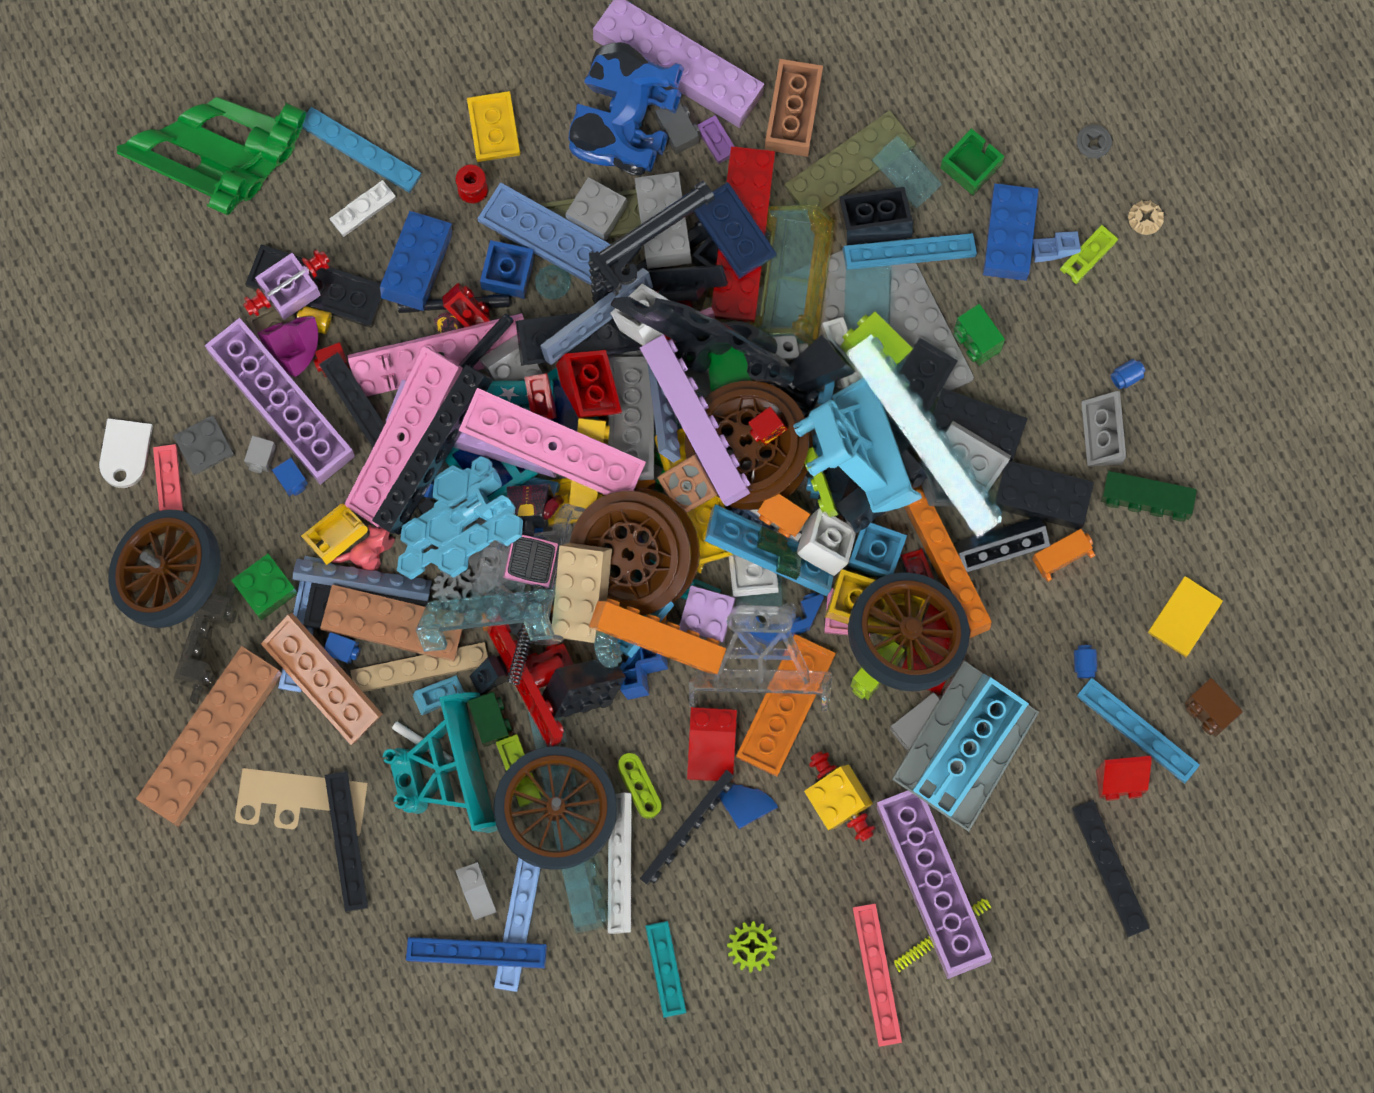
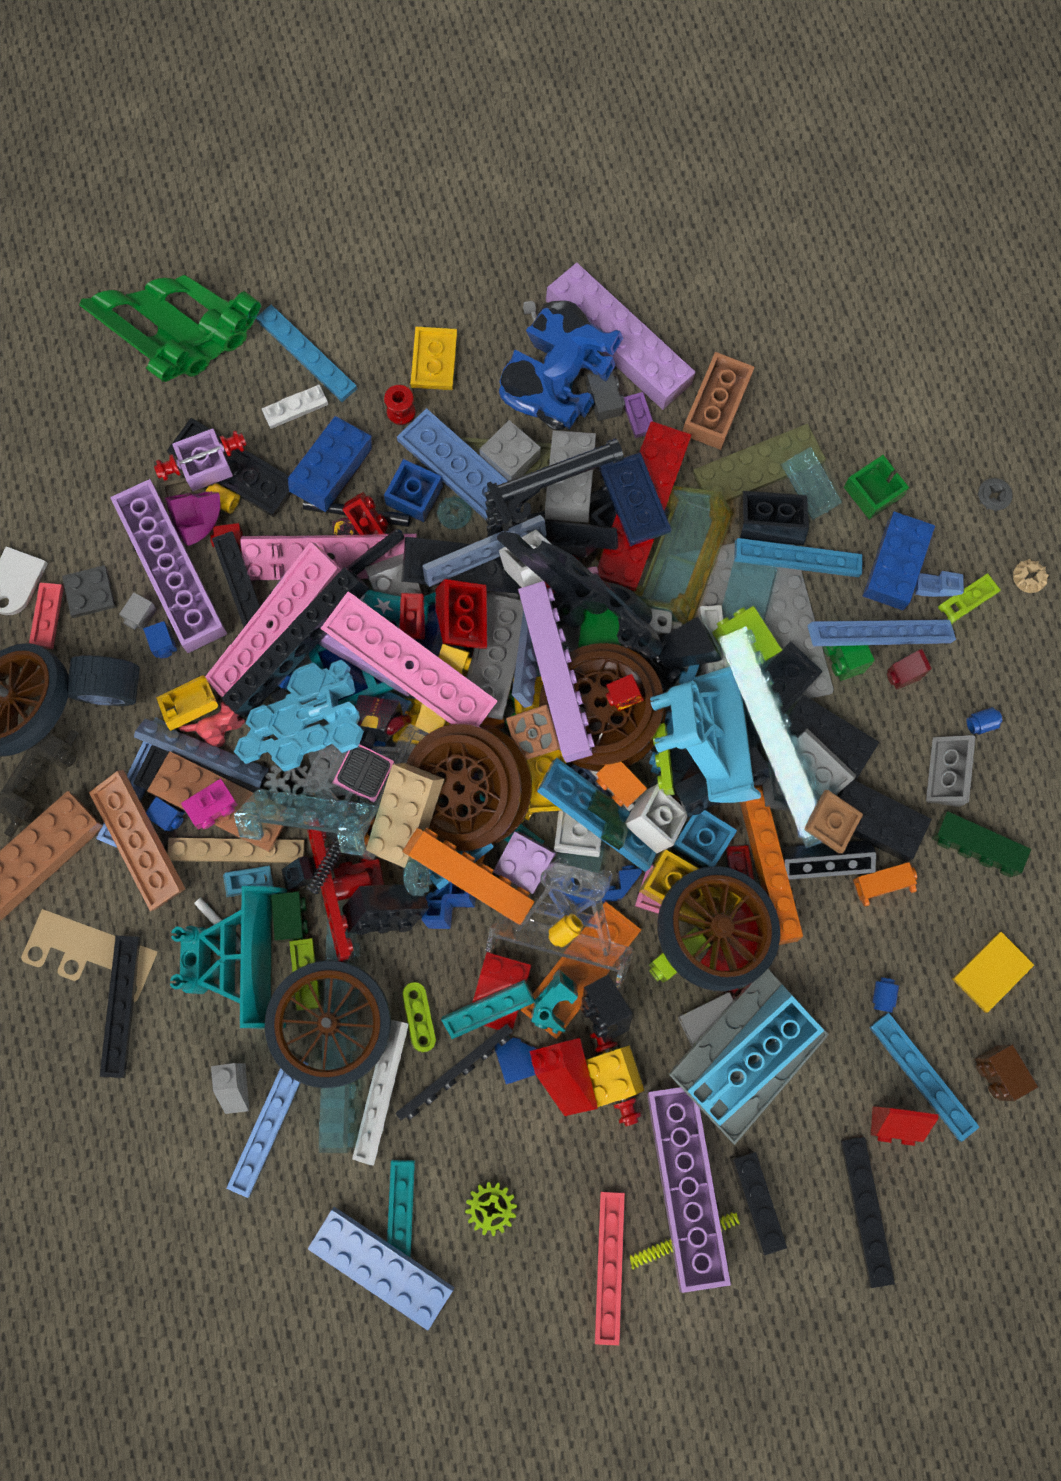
camera: 10 degrees right, 0 degrees up
(248, 530) = (103, 680): none -> black wheel
(264, 587) = (107, 738): green brick -> none
(387, 626) = (209, 805): none -> dark pink brick
(476, 952) = (217, 1149): blue tile -> none
(579, 51) = (530, 308): none -> light grey hand
(660, 1025) = (381, 1268): none -> medium blue plate
(705, 762) = (488, 1009): none -> teal tile
(762, 667) = (565, 930): none -> yellow brick
(767, 727) = (558, 990): none -> teal tile
(794, 806) = (565, 1076): none -> red slope
(818, 733) = (606, 1009): none -> black brick
(997, 505) = (833, 821): none -> medium nougat tile
(1004, 882) = (758, 1203): none -> black brick
(1006, 309) = (880, 632): none -> medium blue plate
(1042, 340) = (908, 670): none -> dark red slope

